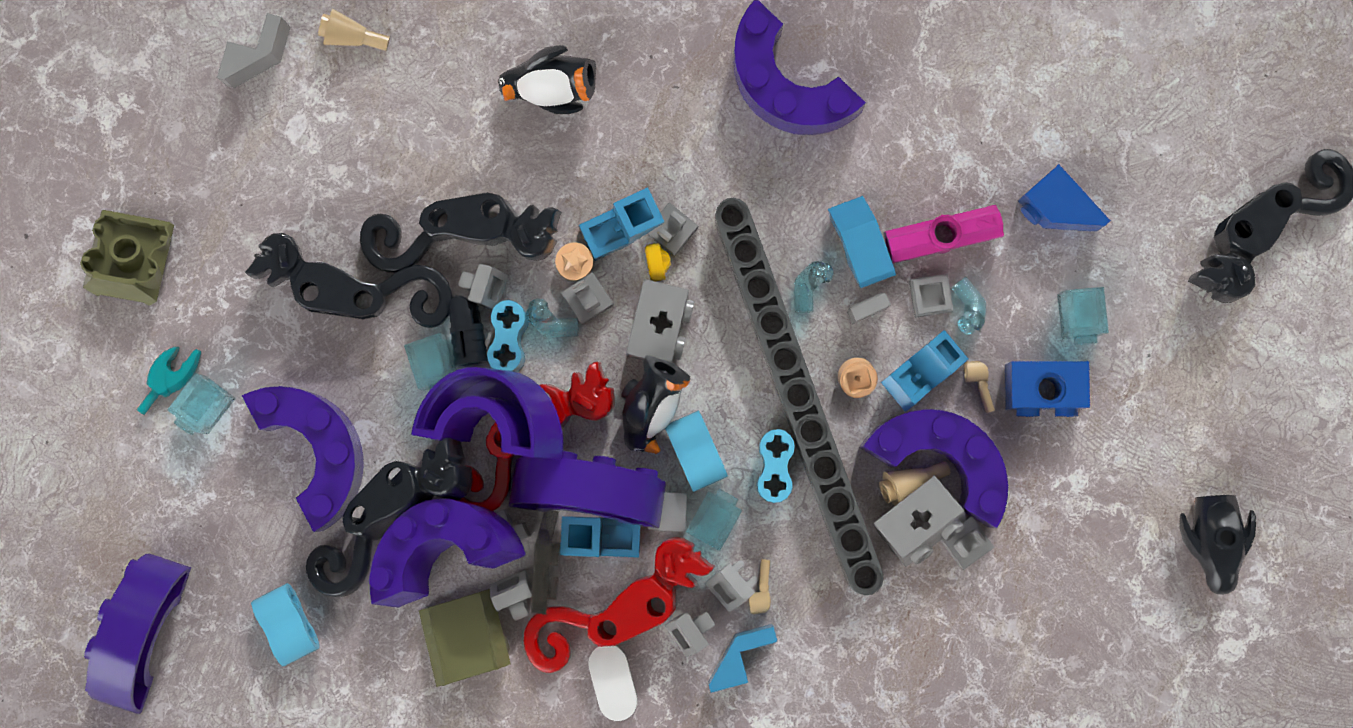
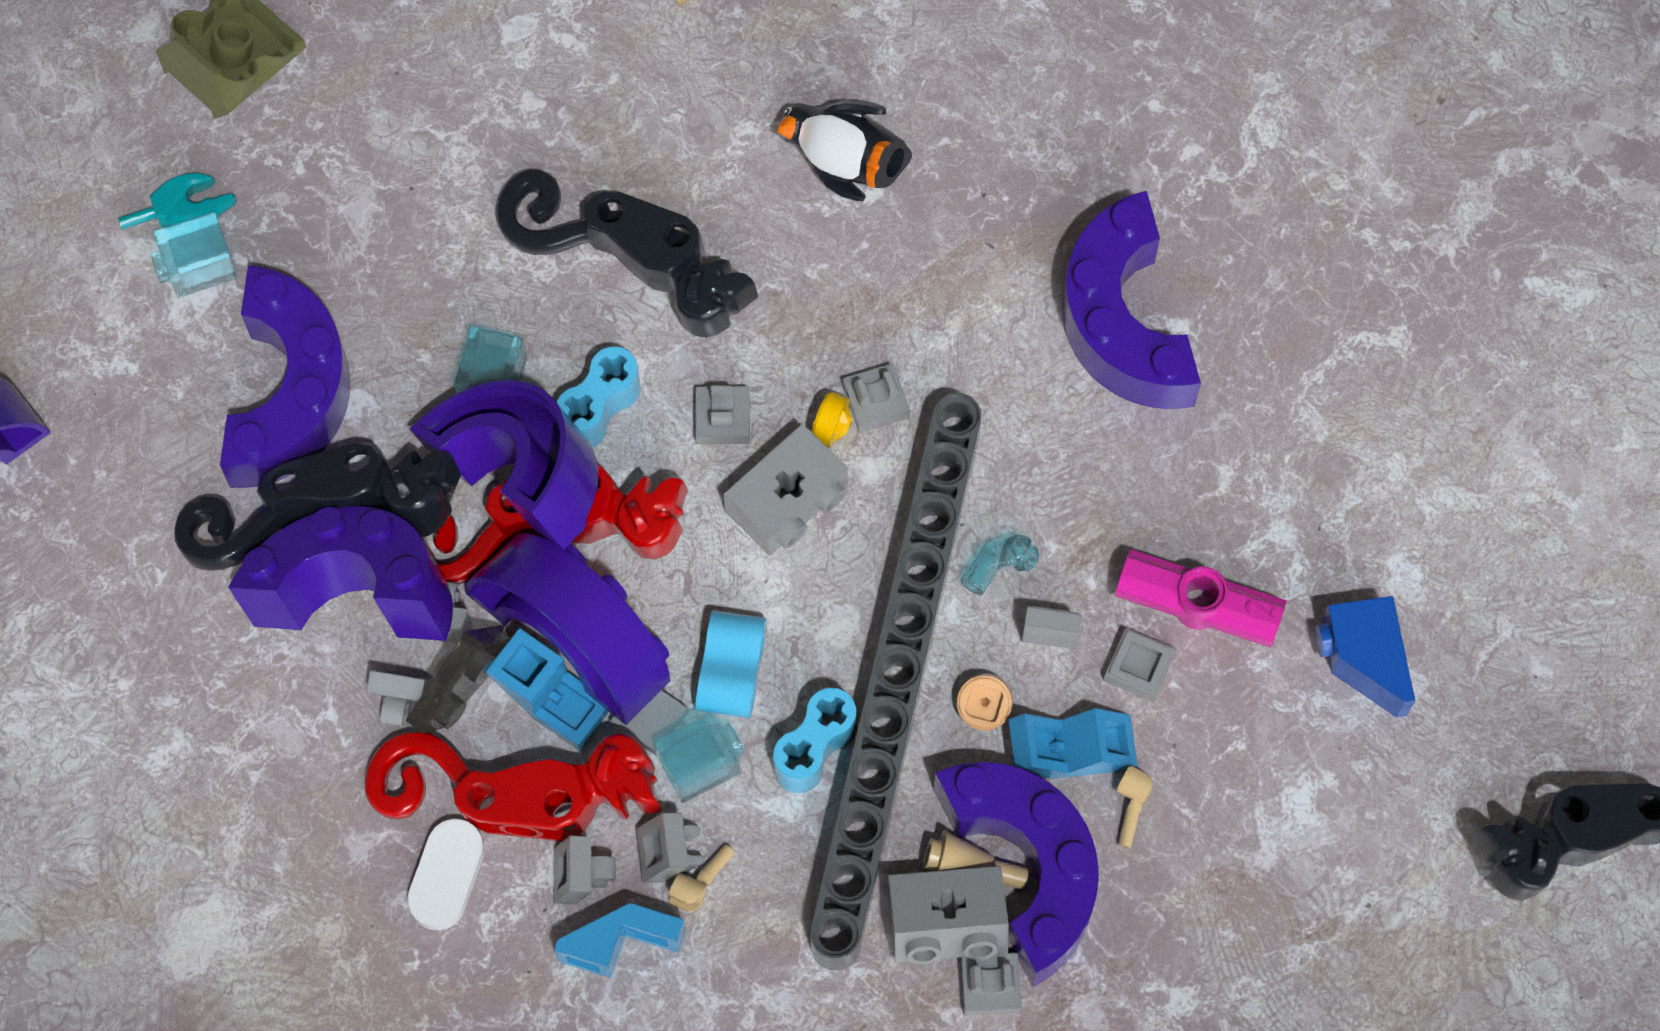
camera: 25 degrees right, 15 degrees down
(285, 624) = (111, 559): medium azure axle -> none
(339, 290) = (442, 228): black animal -> none
(464, 638) = (306, 709): olive slope -> none
(466, 332) = (558, 355): black hinge -> none
(486, 286) = (613, 321): light grey tile -> none
(547, 324) = (656, 416): clear light blue arm -> none
(574, 261) = (736, 362): light nougat tile -> none
(622, 225) = (819, 357): dark azure slope -> none
(651, 403) = (715, 571): black animal -> none
(862, 241) = (1094, 547): dark azure slope -> none
(974, 307) = (1183, 709): clear light blue arm -> none
(1068, 377) = (1199, 825): blue brick -> none
(1083, 315) = (1312, 797): clear light blue brick -> none

